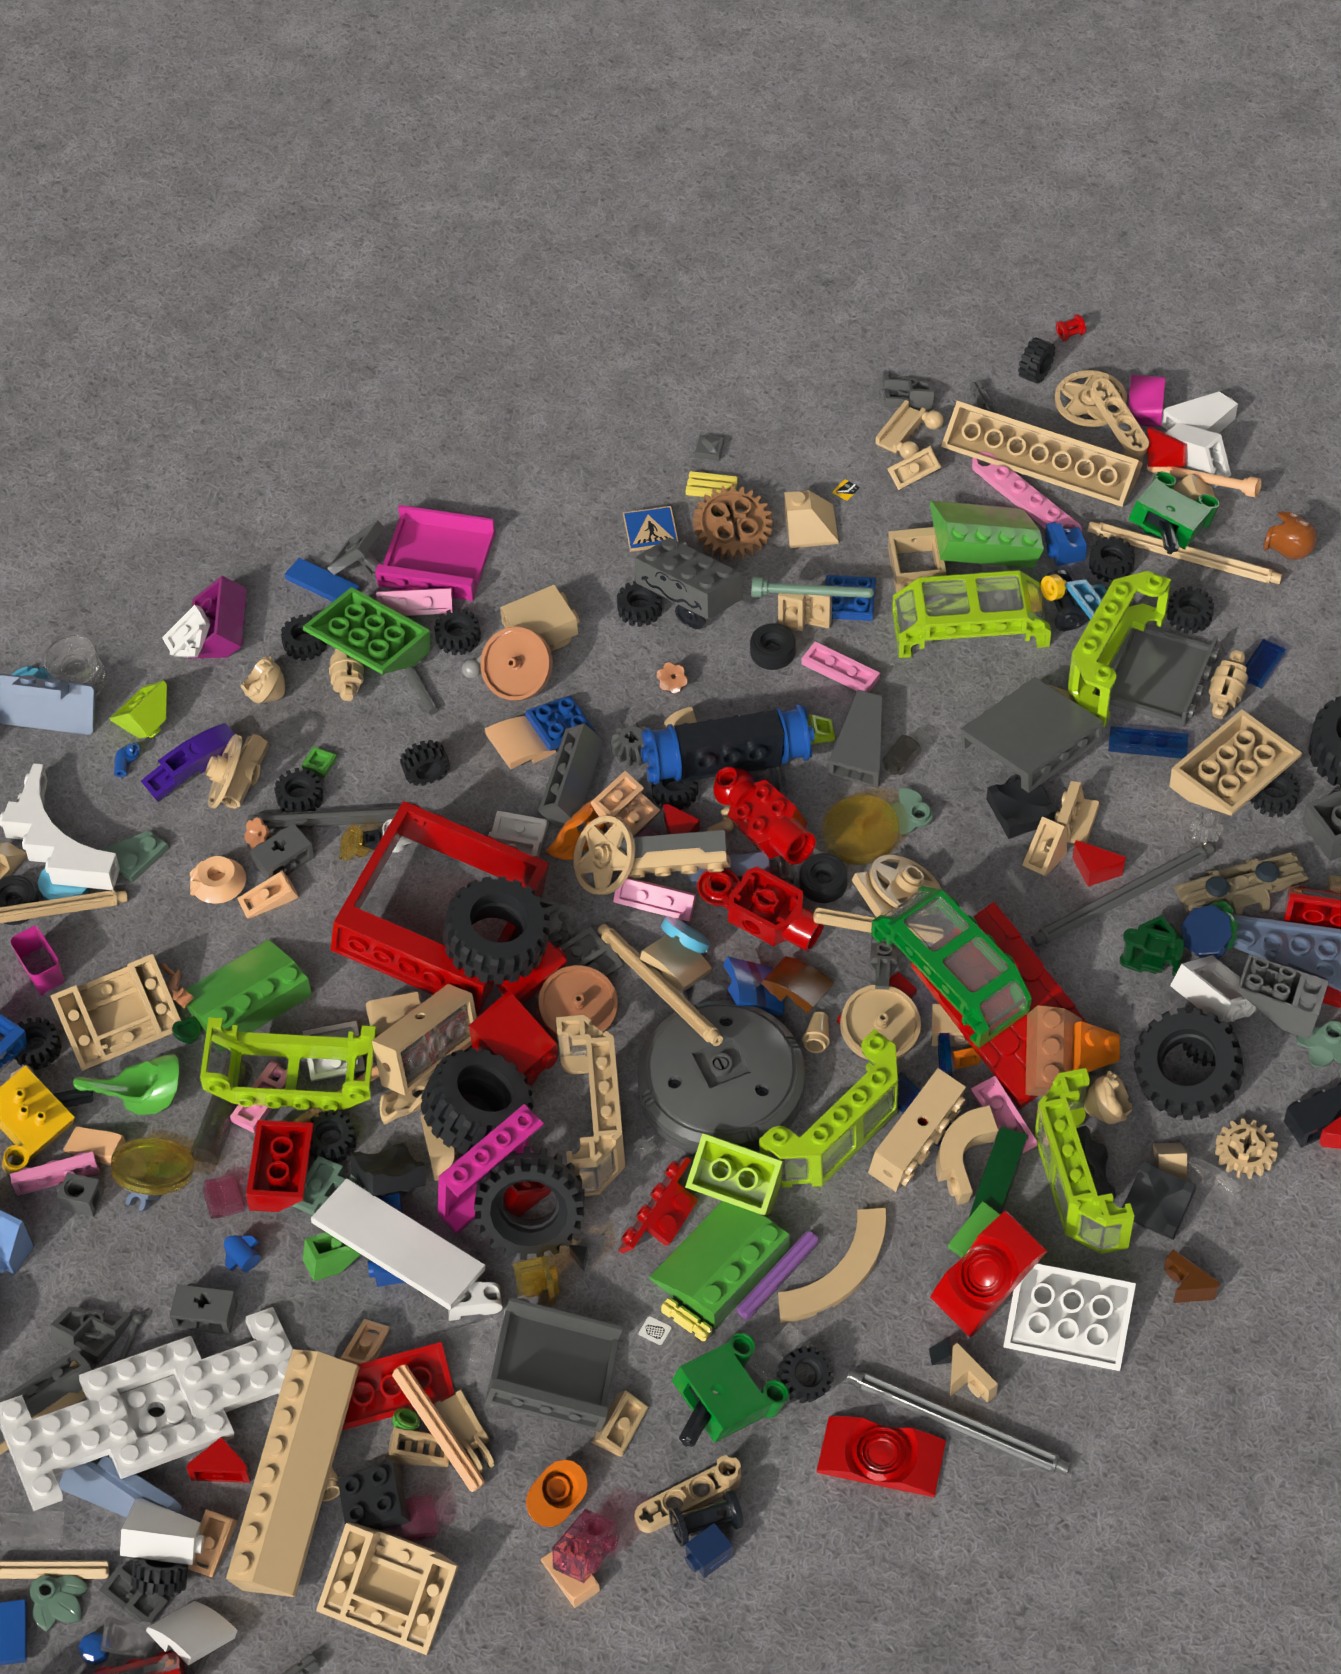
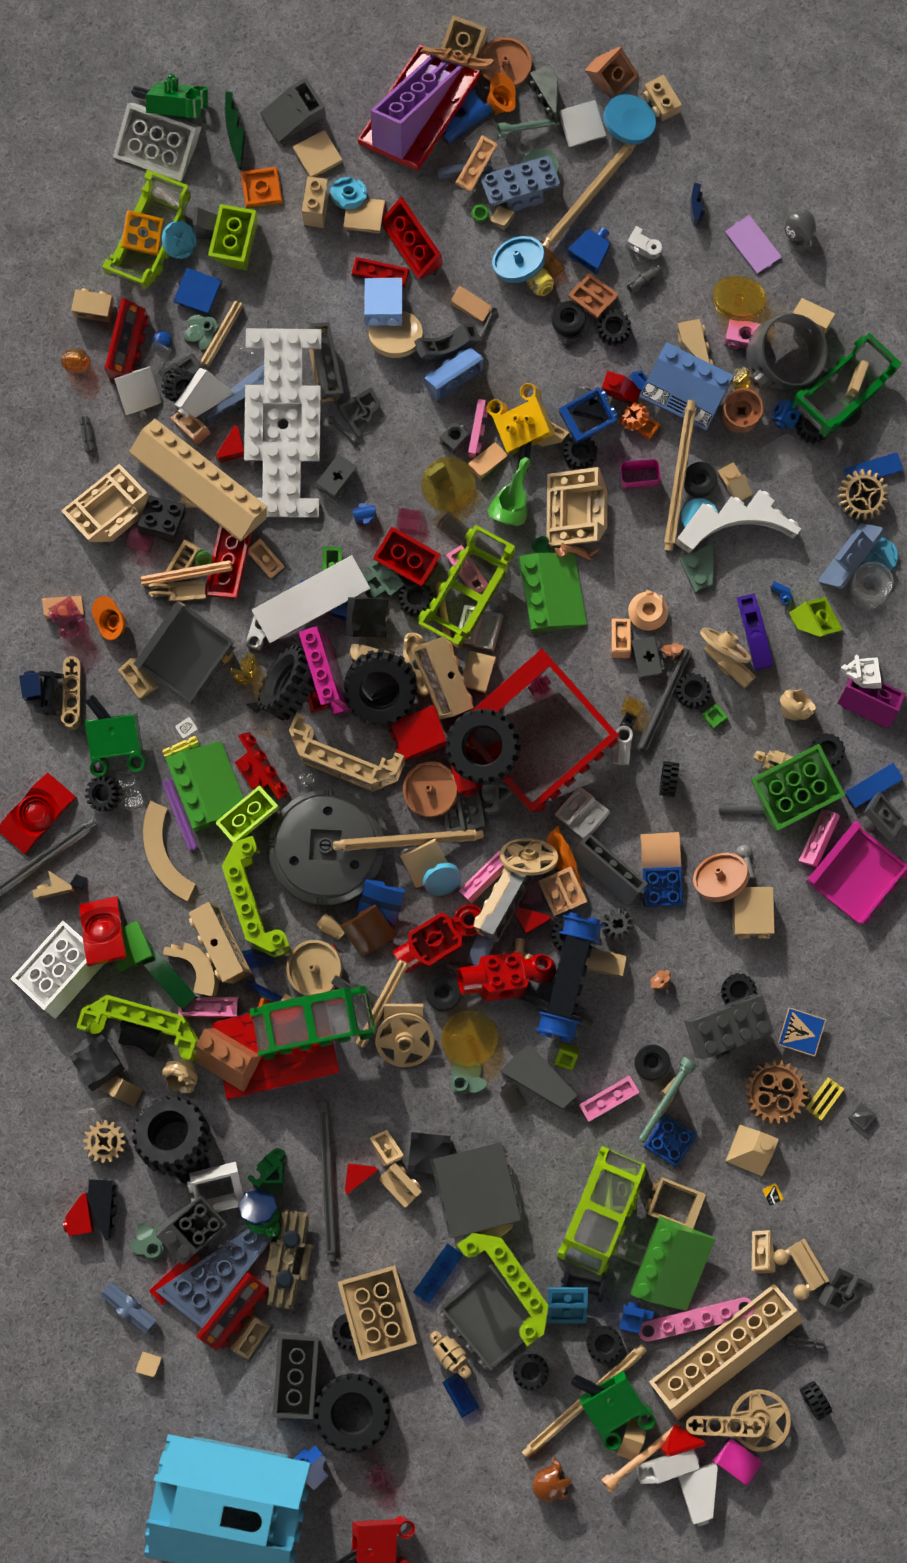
camera: 115 degrees right, 25 degrees up
(460, 642) = (789, 855): black tyre -> none
(1053, 587) = (590, 1279): yellow tile -> none
(1076, 322) = (841, 1450): red bush -> none
(1094, 1047) = (219, 1086): orange wing -> none
(1195, 1282) = (34, 1053): reddish brown slope -> none

